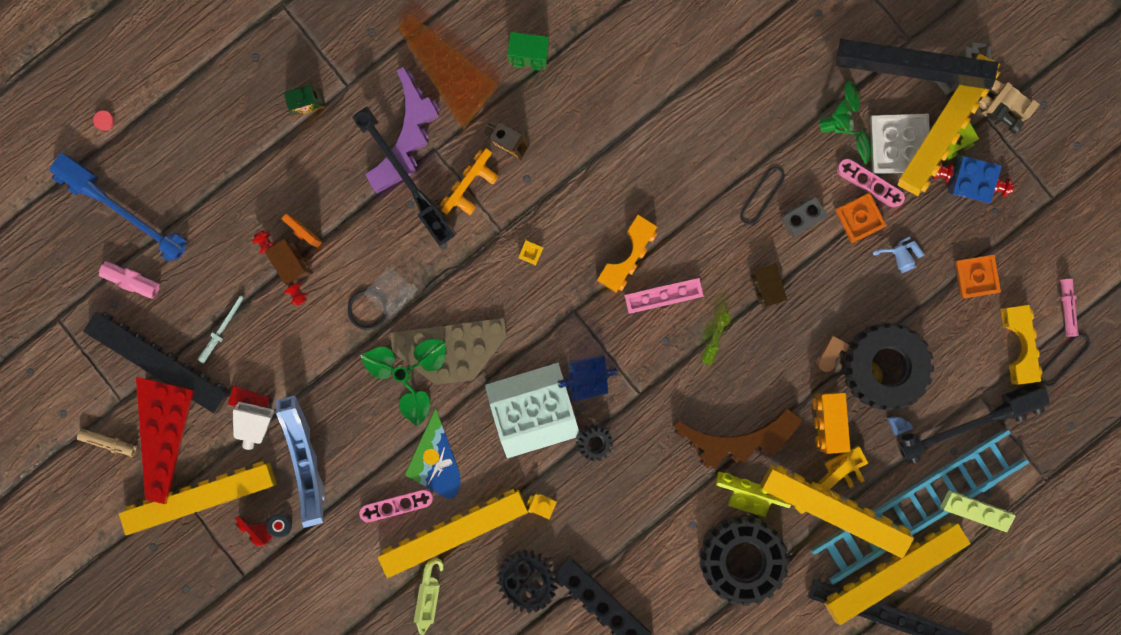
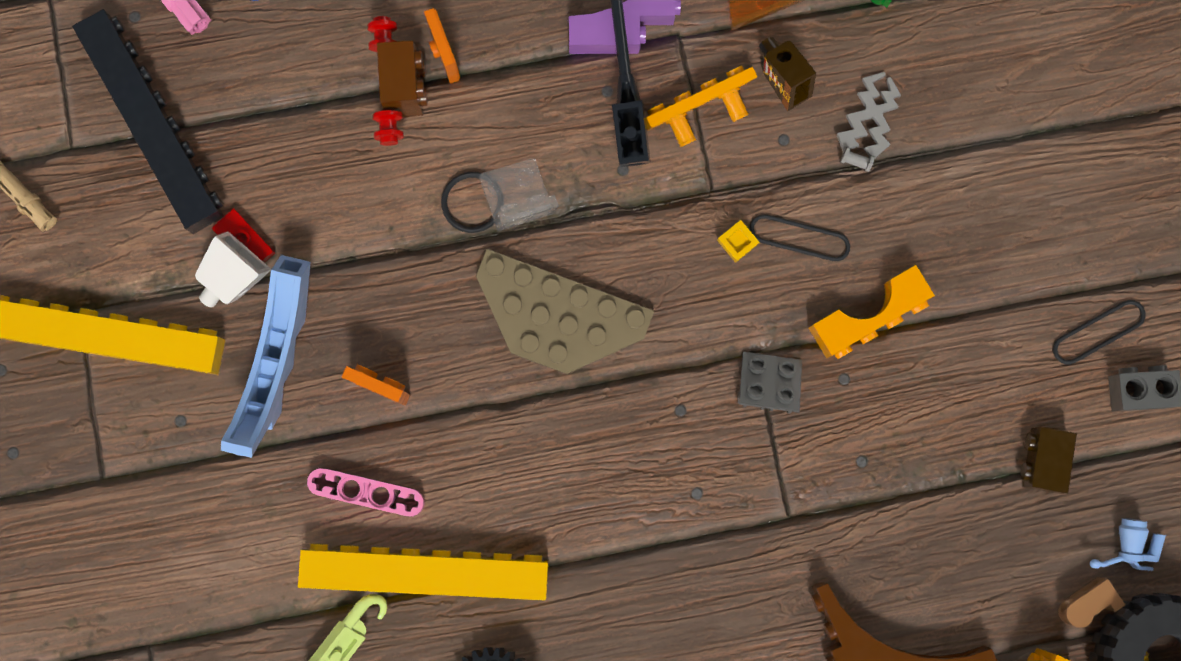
camera: 25 degrees right, 5 degrees down
(162, 423) = (107, 205): red wing -> none
(216, 337) = (246, 131): light aqua sword -> none
(277, 526) = (185, 431): plate -> none
(363, 443) = (367, 379): none -> orange plate
(430, 355) = (526, 311): green plant -> none
(434, 462) = (451, 460): sticker -> none
(532, 410) = (627, 460): light aqua slope -> none
(541, 505) = (568, 600): yellow bracket -> none
(562, 160) = (872, 111): none -> light grey piece
(565, 239) = (789, 222): none -> black piece
(588, 377) = (729, 454): clear blue plate -> none
(590, 324) = (770, 382): none -> dark grey hinge
(603, 448) = (697, 566): black tyre -> none
(663, 295) = (893, 397): bright pink plate -> none
(722, 320) = (958, 474): clear neon green pin -> none
(837, 305) = (1132, 540): none -> light blue piece

